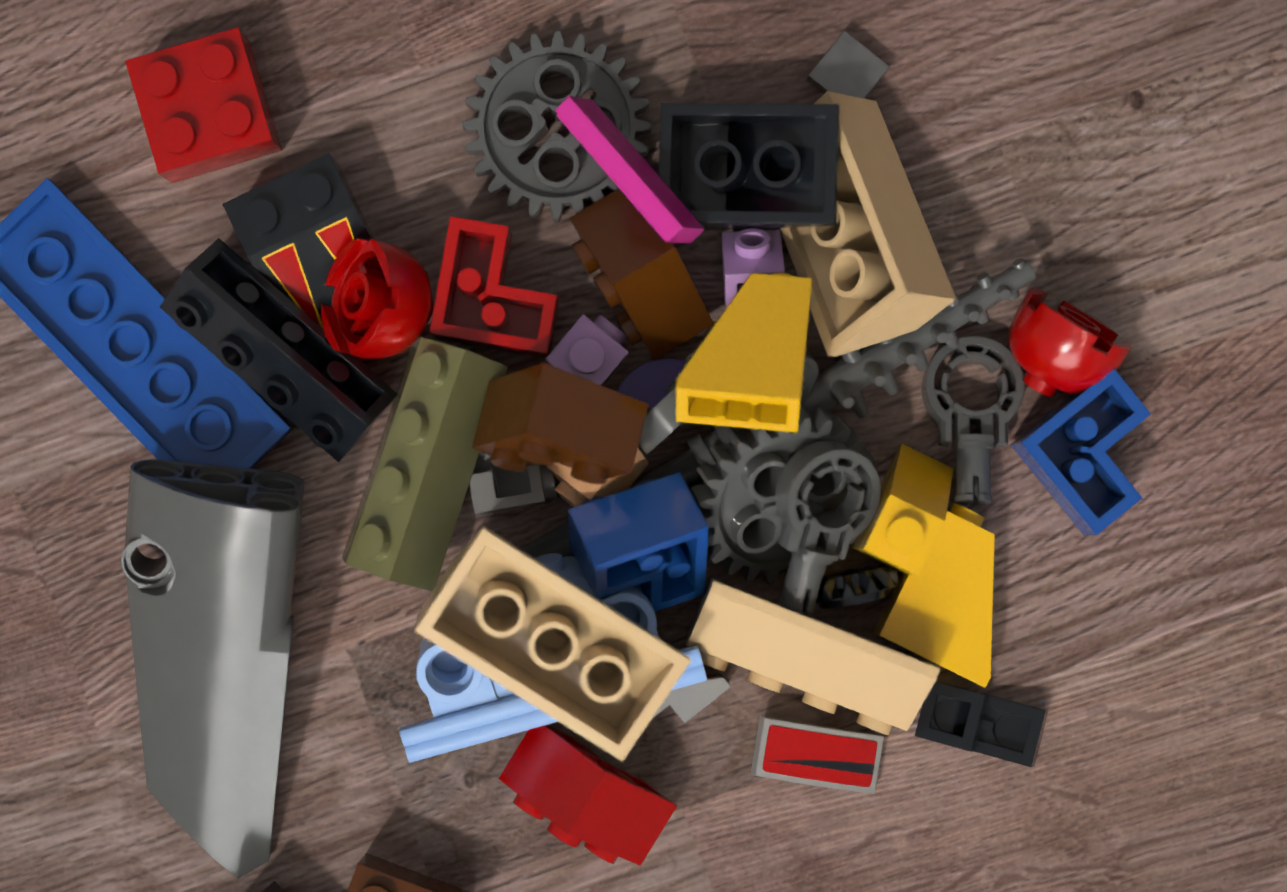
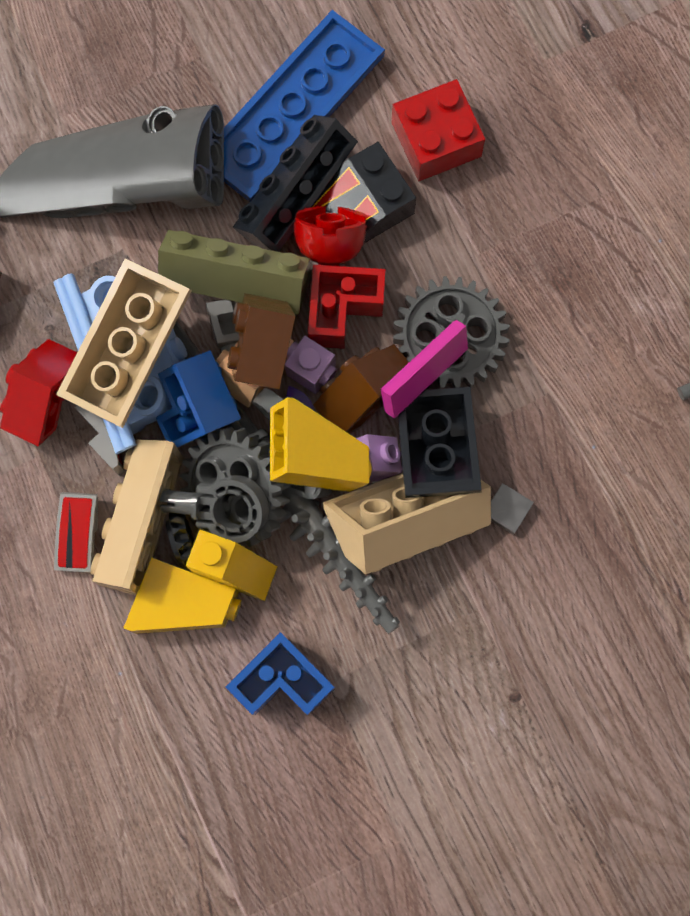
camera: 90 degrees right, 10 degrees down
(973, 450) = (274, 608): dark grey pin -> none
(982, 723) = (103, 634): black slope -> none
(1062, 346) = (347, 657): red cylinder -> none

